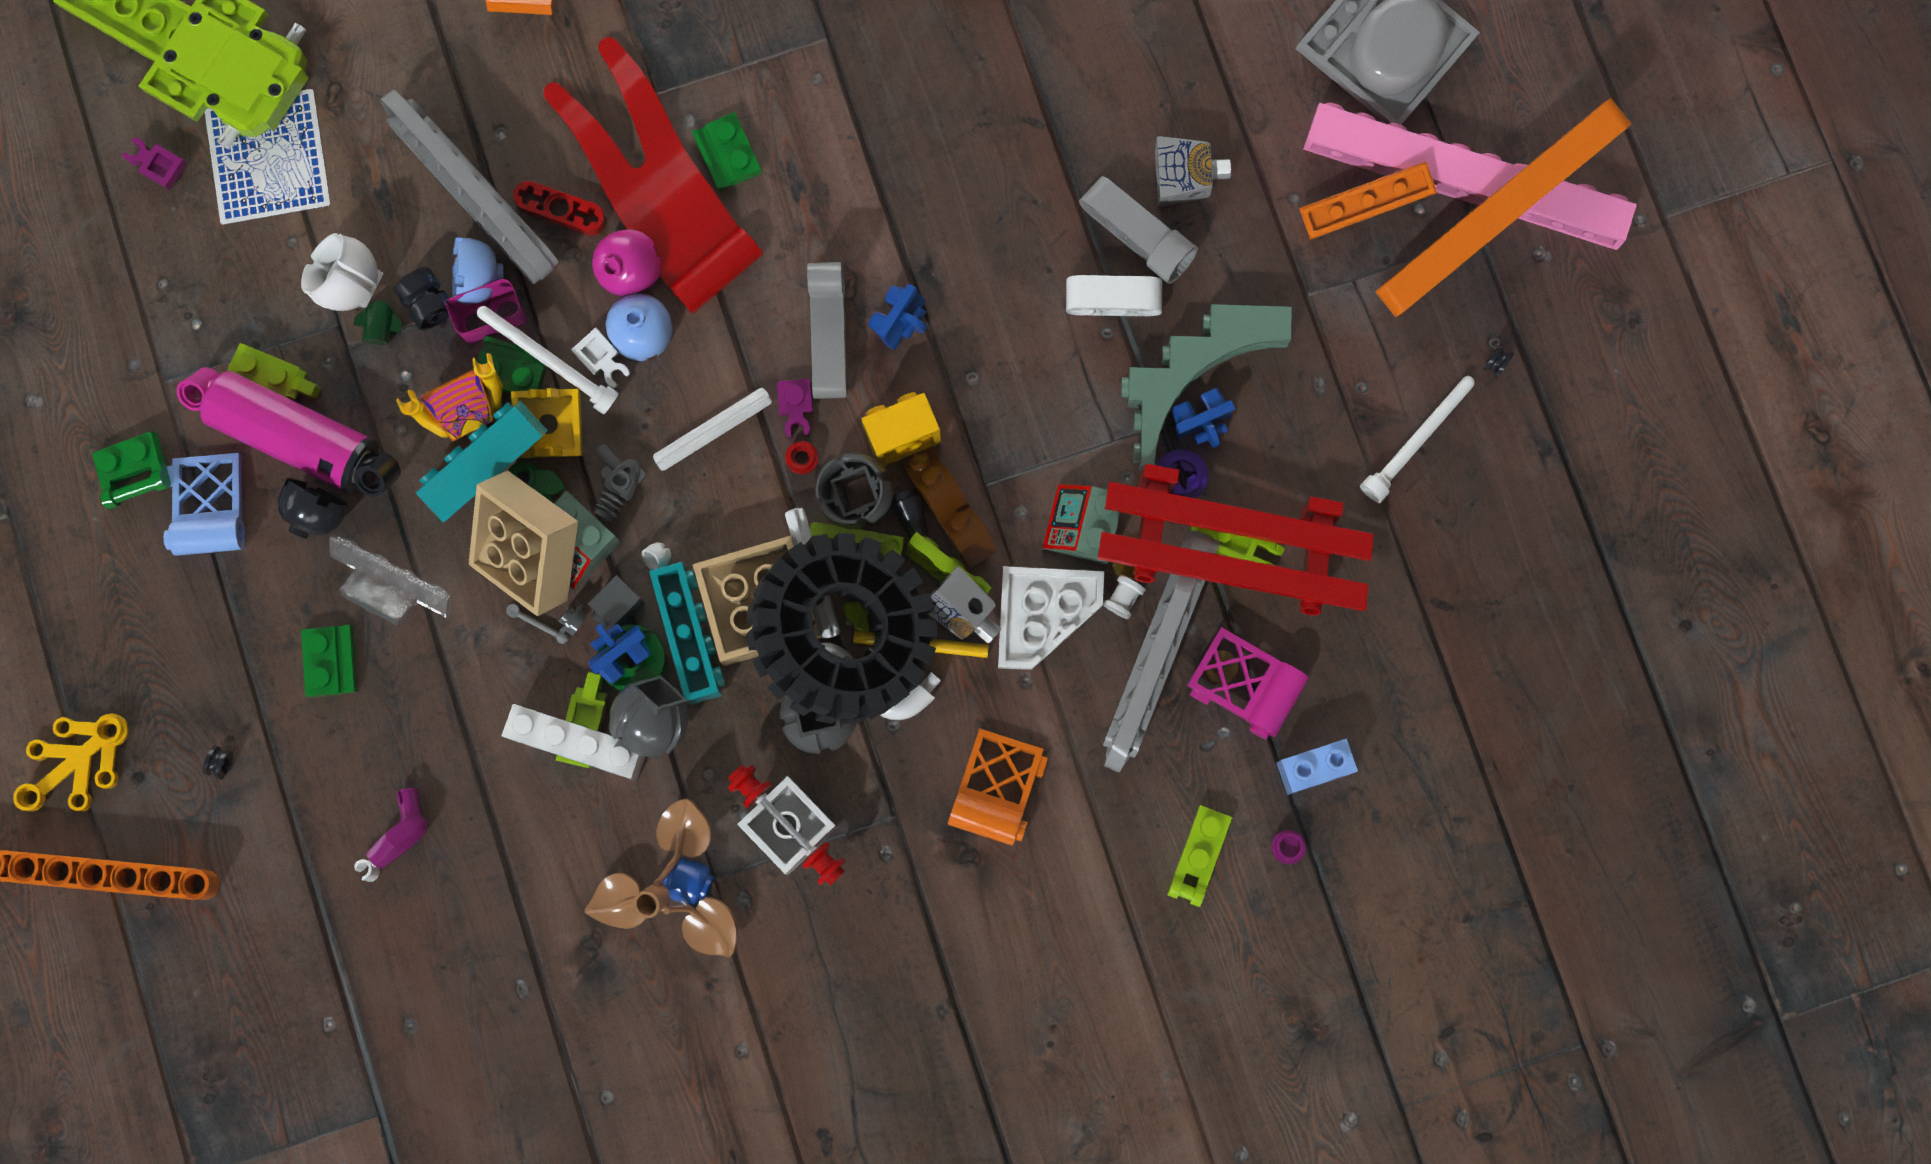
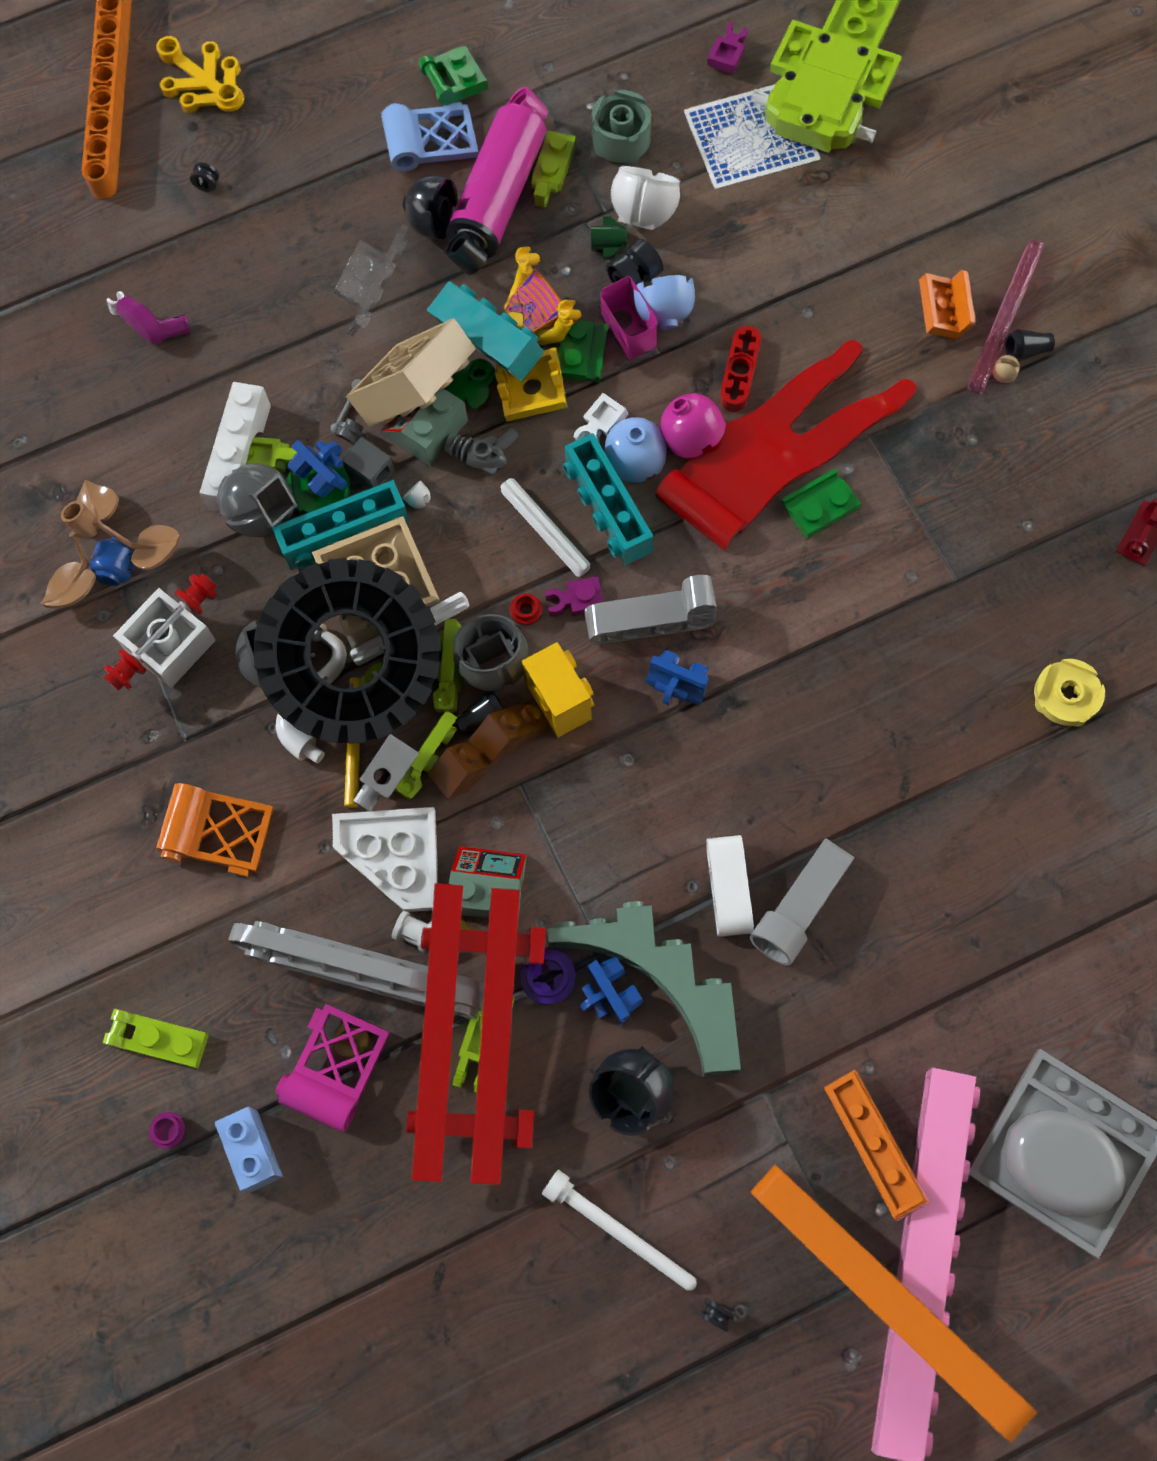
camera: 85 degrees right, 10 degrees down
(255, 303) = (621, 127): none -> sand green brick
(329, 661) = (300, 248): green plate -> none
(469, 187) = (742, 284): light grey beam -> none
(601, 396) = (562, 425): white piece -> none
(697, 358) = (608, 499): none -> teal brick
(1186, 170) = (876, 944): light grey torso -> none
(1303, 415) = (623, 1100): none -> black piece

